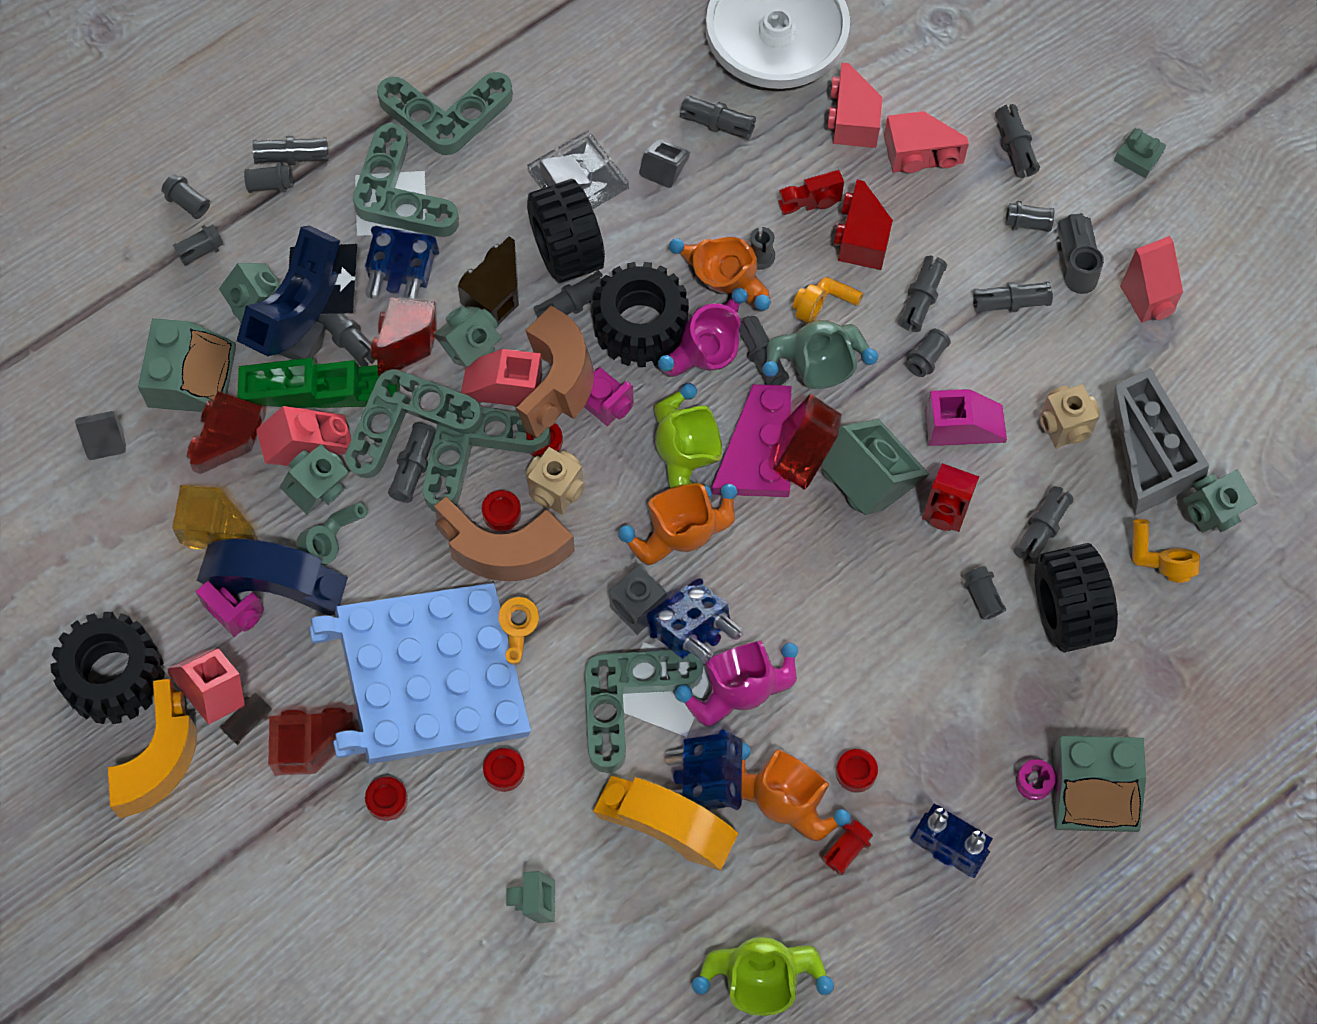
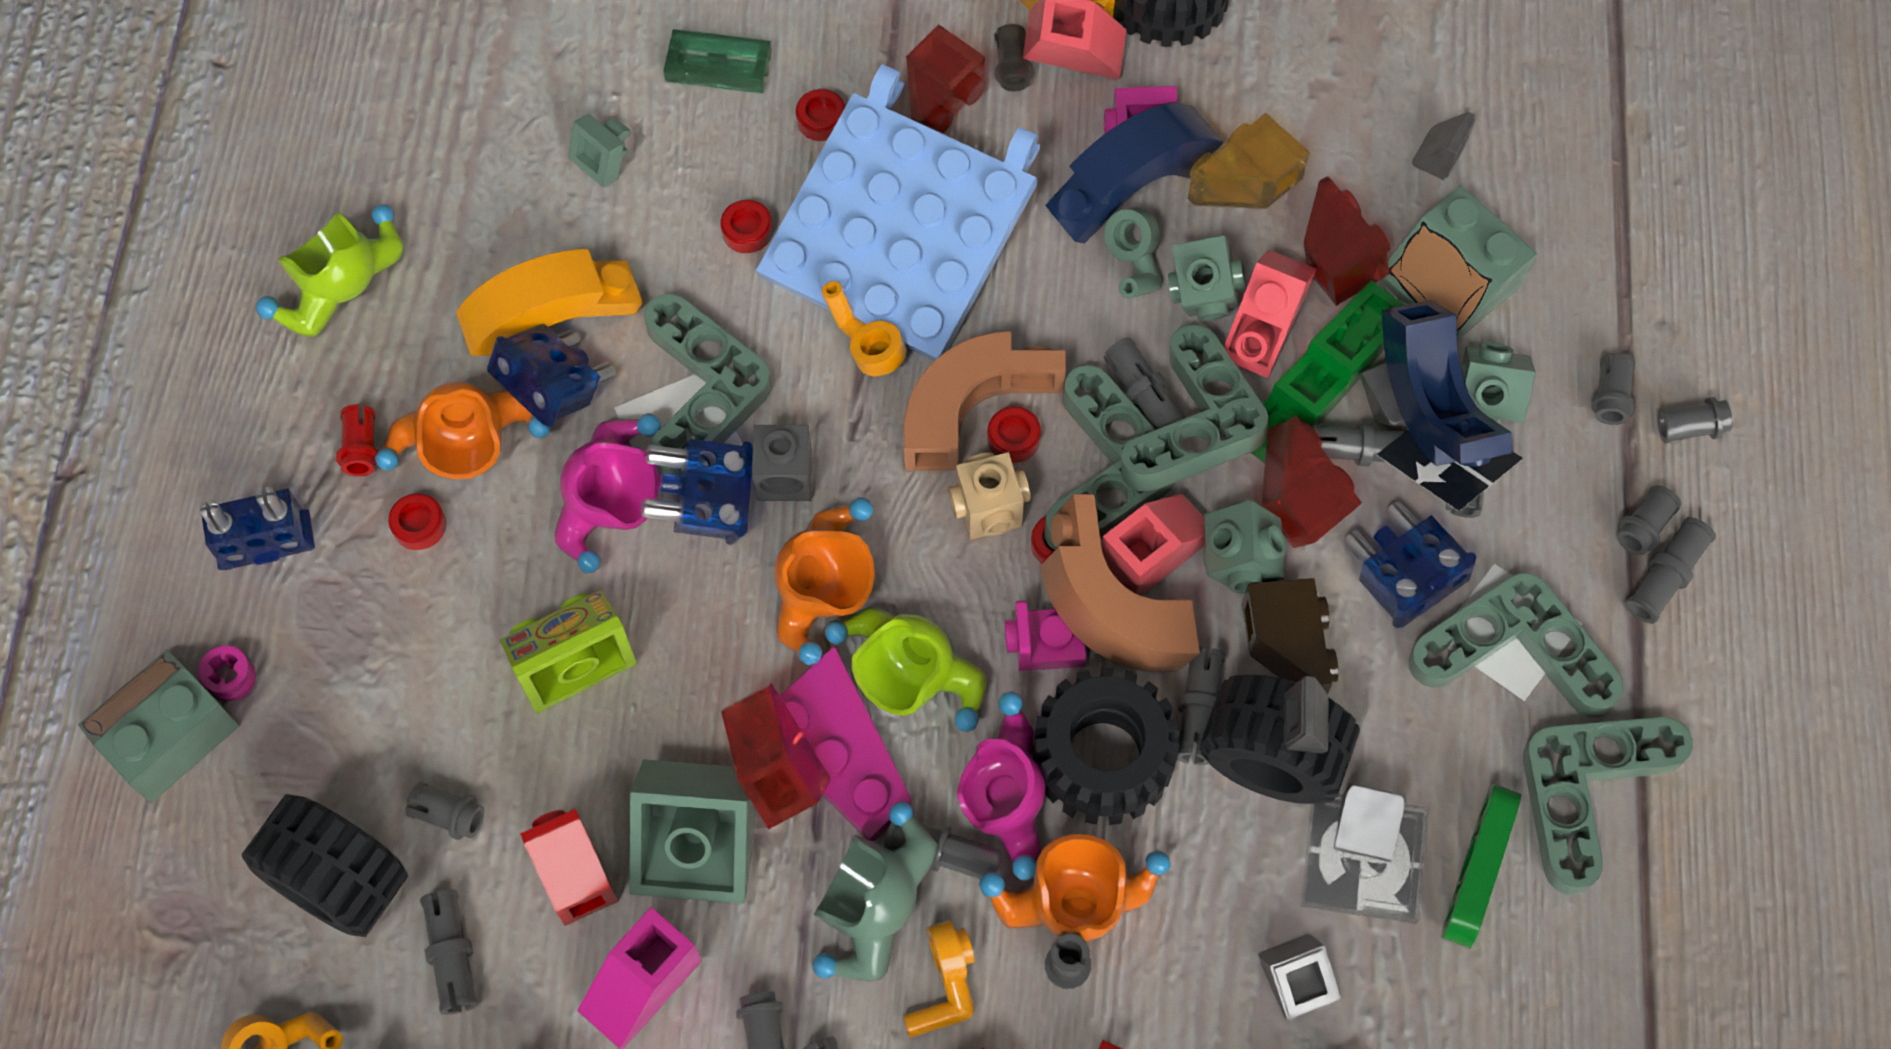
camera: 135 degrees right, 0 degrees up
(422, 926) = (715, 68): none -> clear green tile
(535, 122) = (1481, 866): none -> green beam
(561, 191) = (1306, 717): none -> flat silver slope
(849, 603) = (568, 650): none -> lime slope

